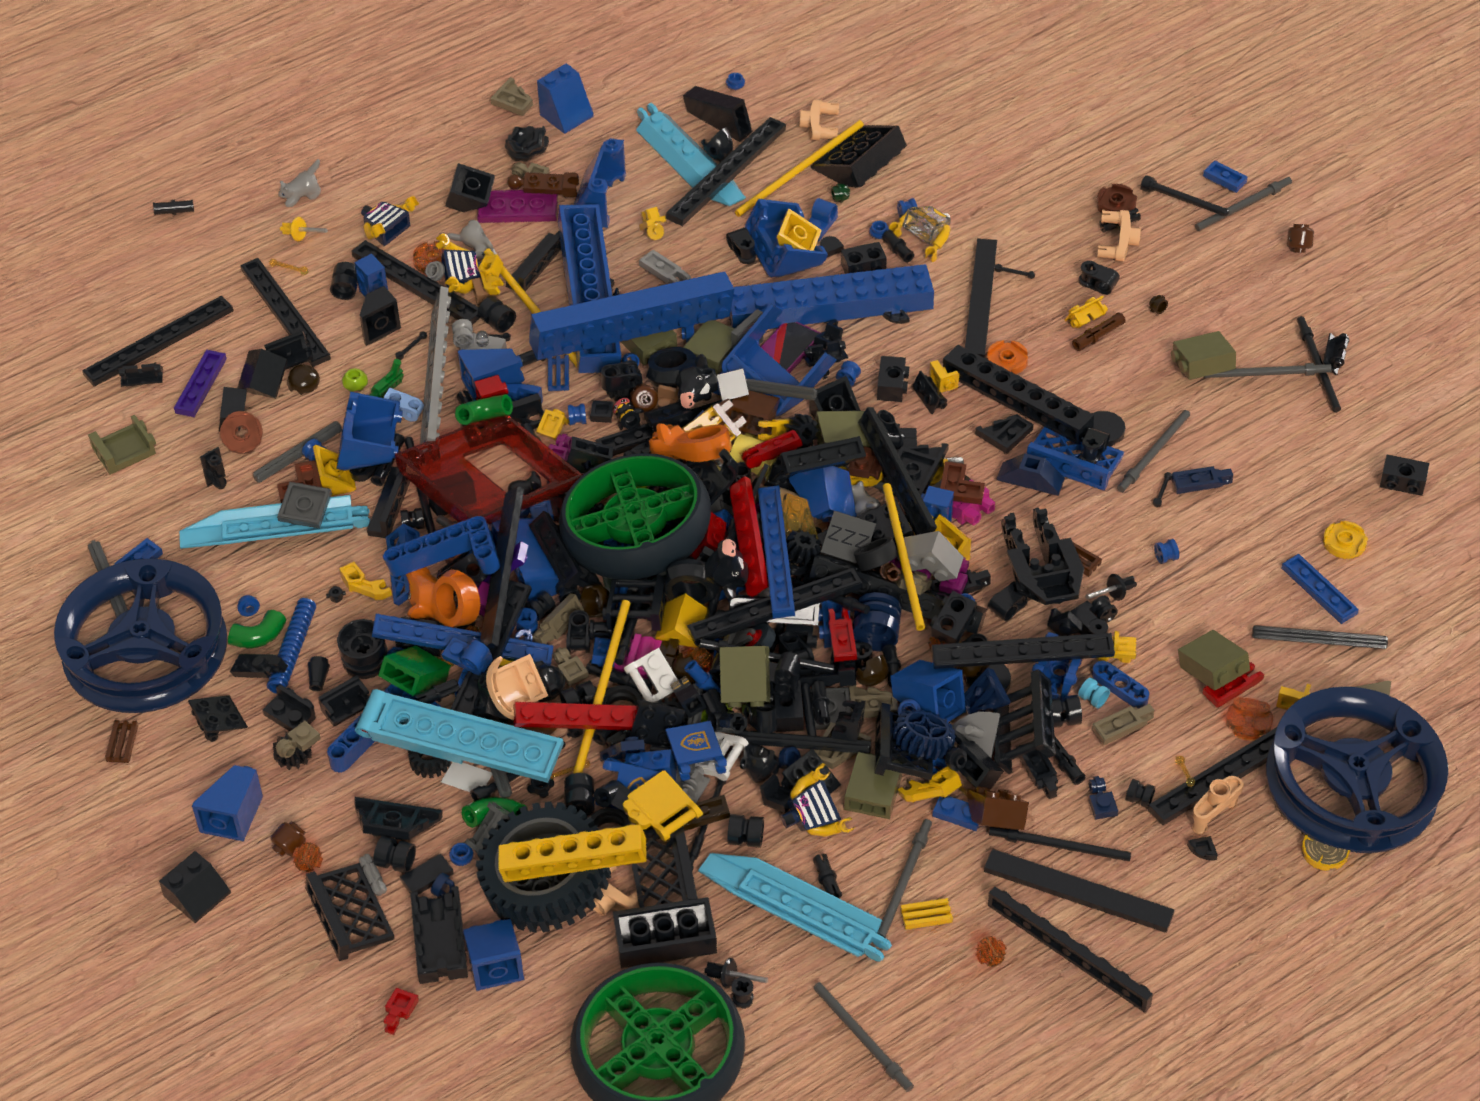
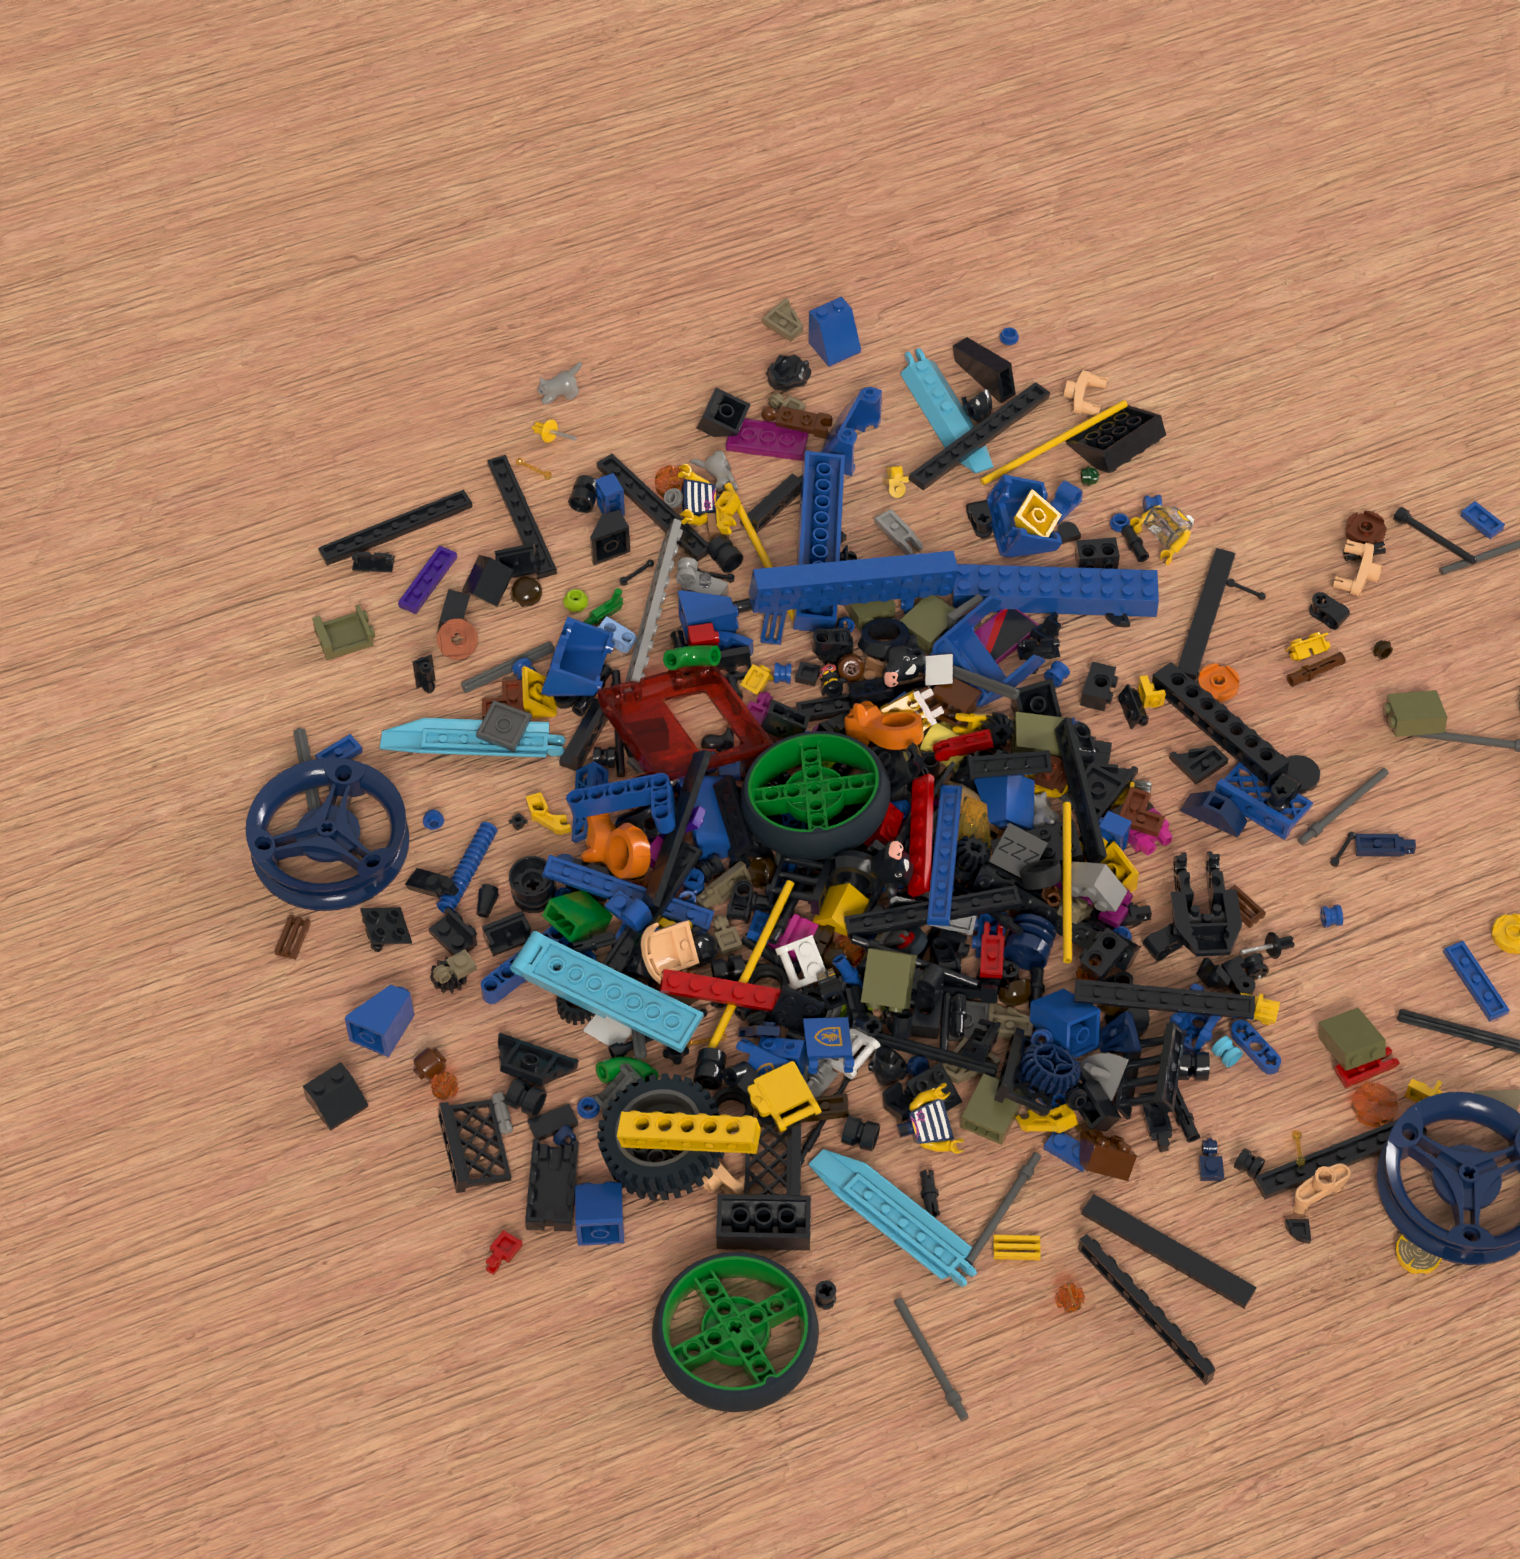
camera: 10 degrees right, 5 degrees up
(173, 207) = (433, 387): black pin -> none
(258, 635) = (438, 851): green cylinder -> none
(387, 220) = (637, 435): torso -> none
(728, 973) = (816, 1272): black piece -> none
(1015, 835) = (1118, 1184): black bar -> none
(1122, 723) = (1248, 1088): dark tan hinge -> none

